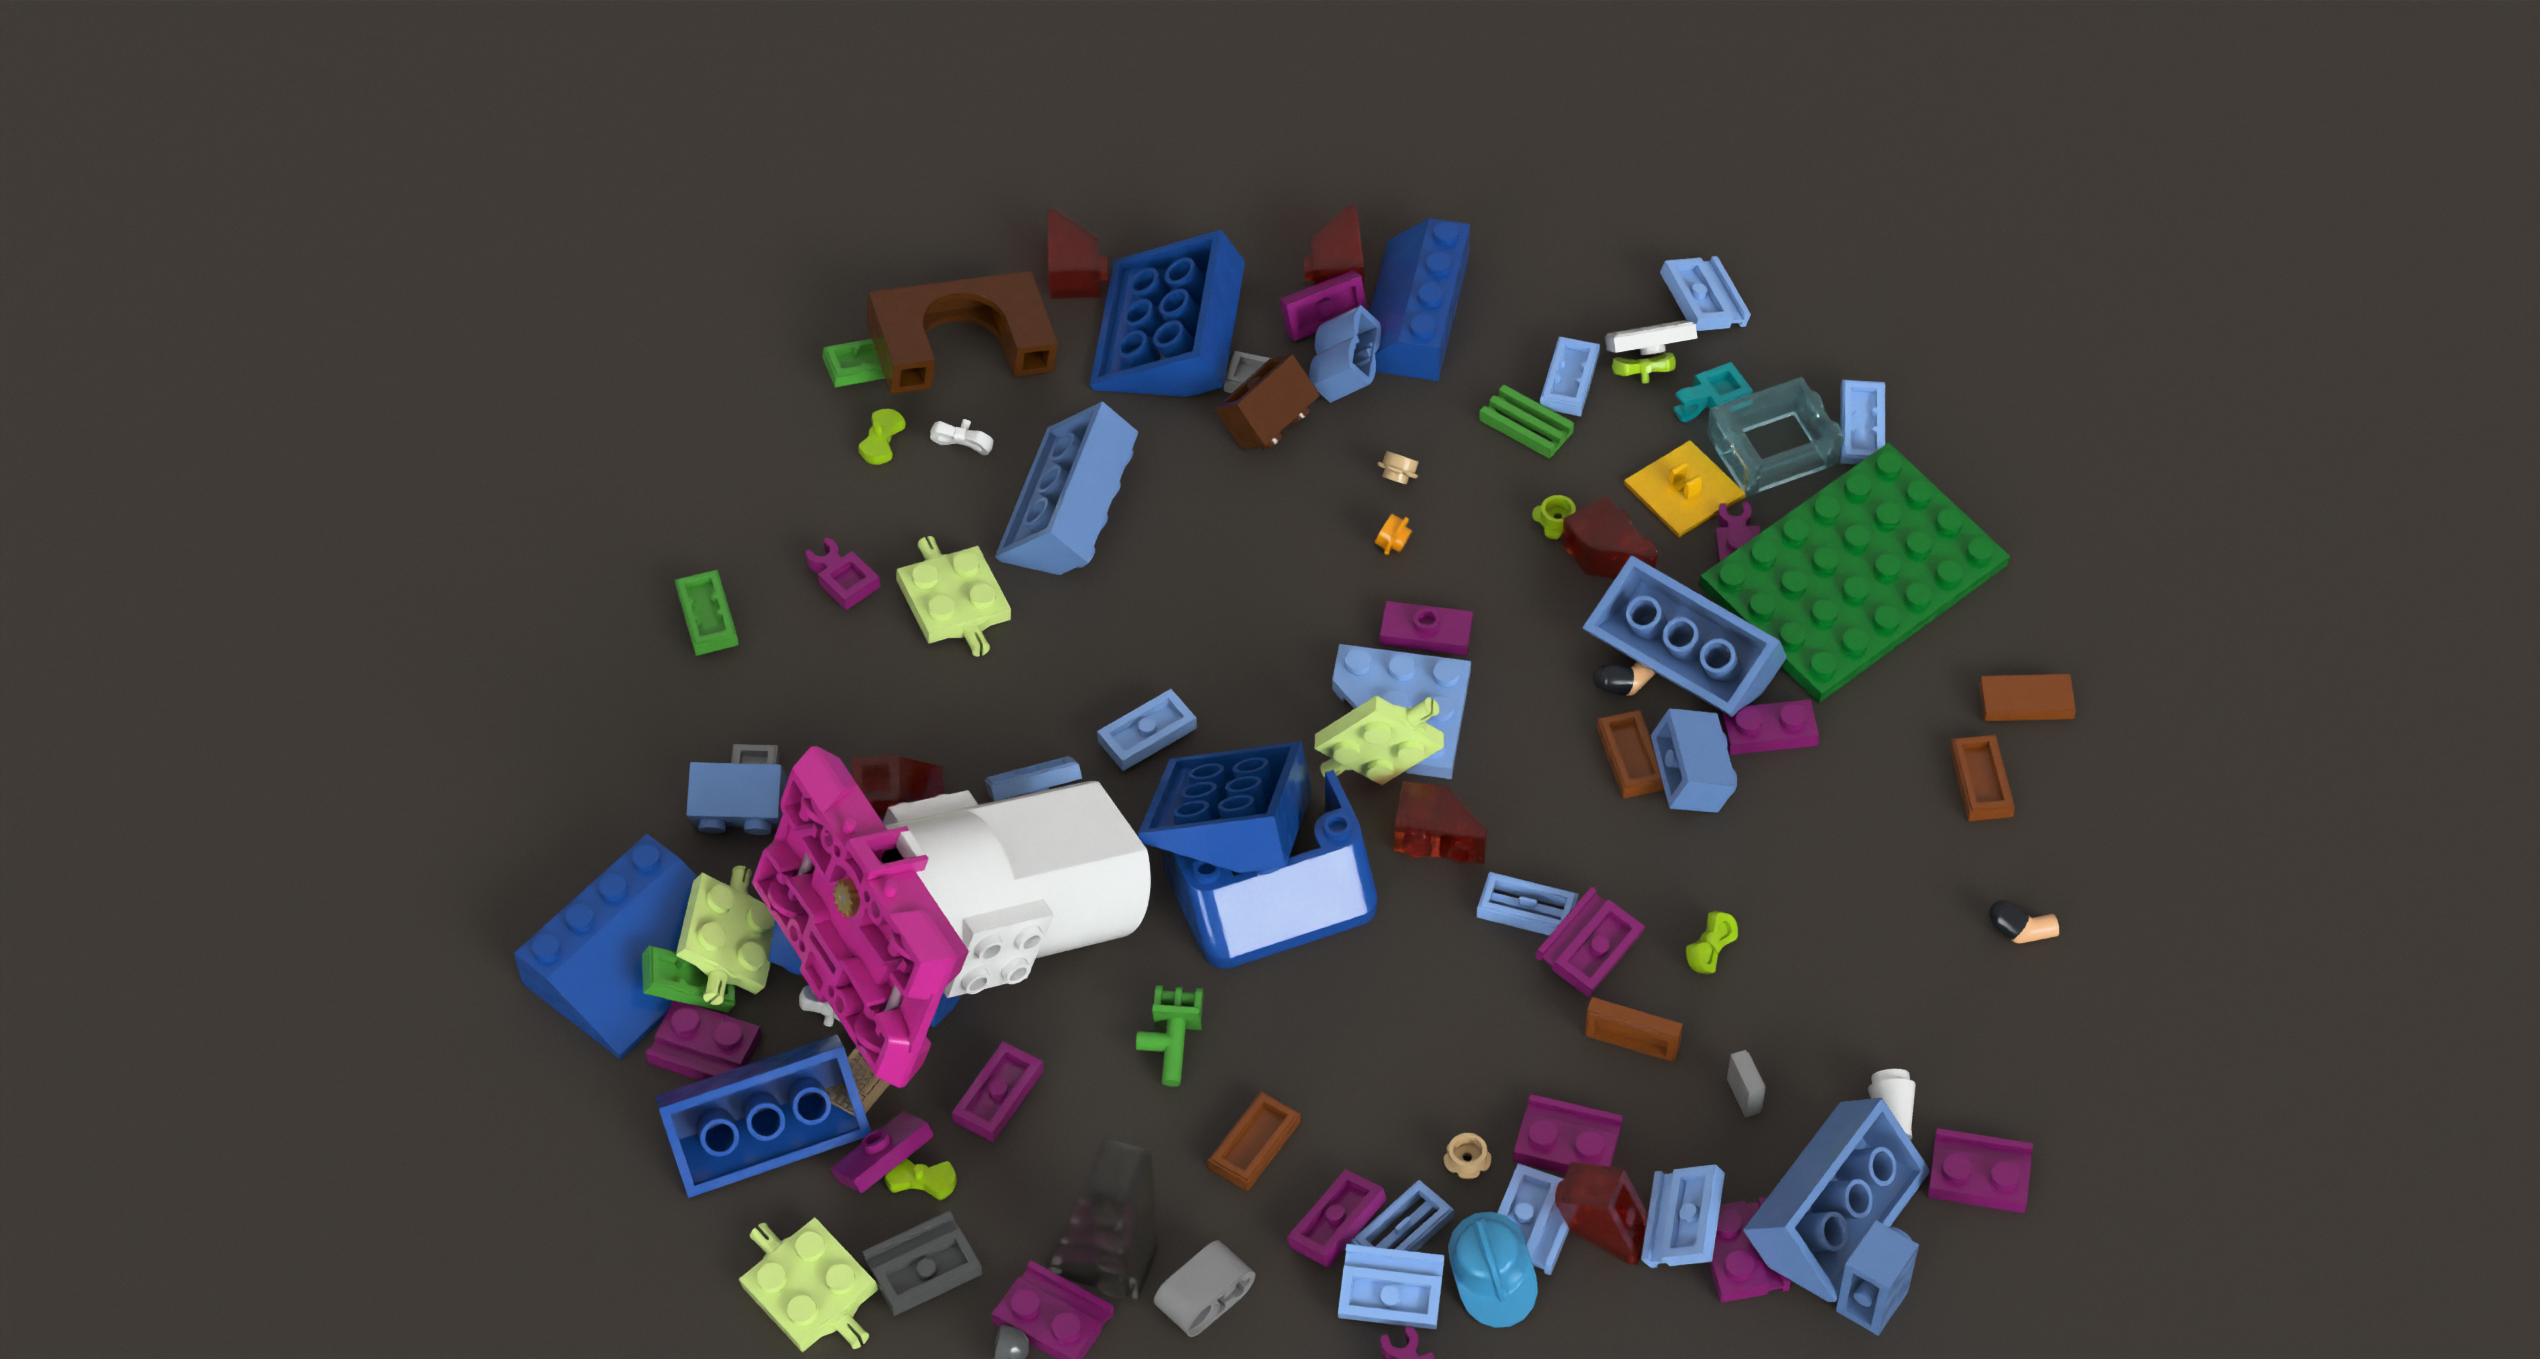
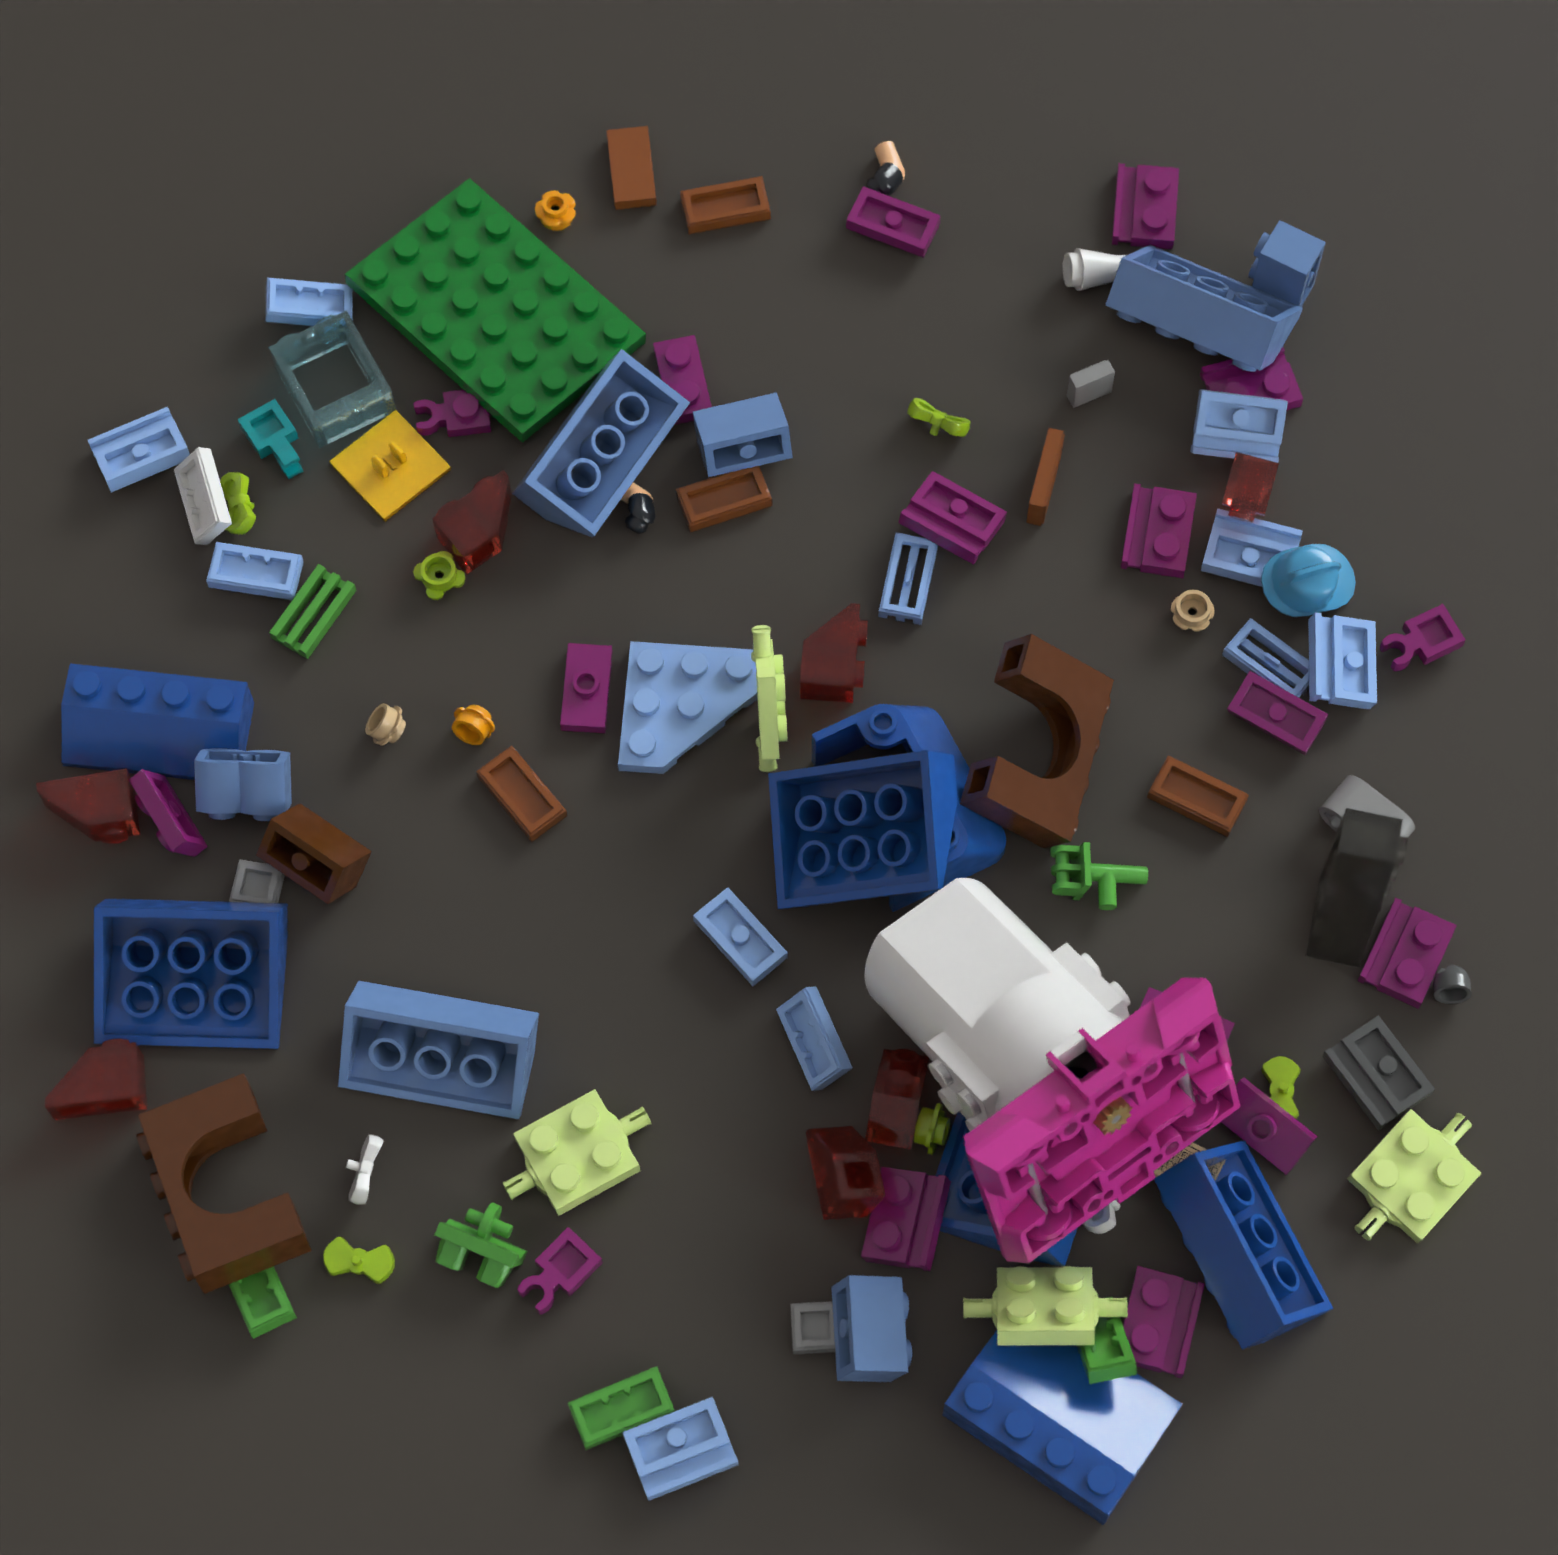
camera: 95 degrees left, 15 degrees up
(660, 652) = (680, 1448): none -> light blue plate
(878, 512) = (498, 1255): none -> bright green hips
(1249, 986) = (1074, 704): none -> reddish brown arch
(1320, 573) = (521, 793): none -> dark orange tile
(1955, 921) = (893, 222): none -> magenta plate
(1970, 637) = (557, 219): none -> light orange plate

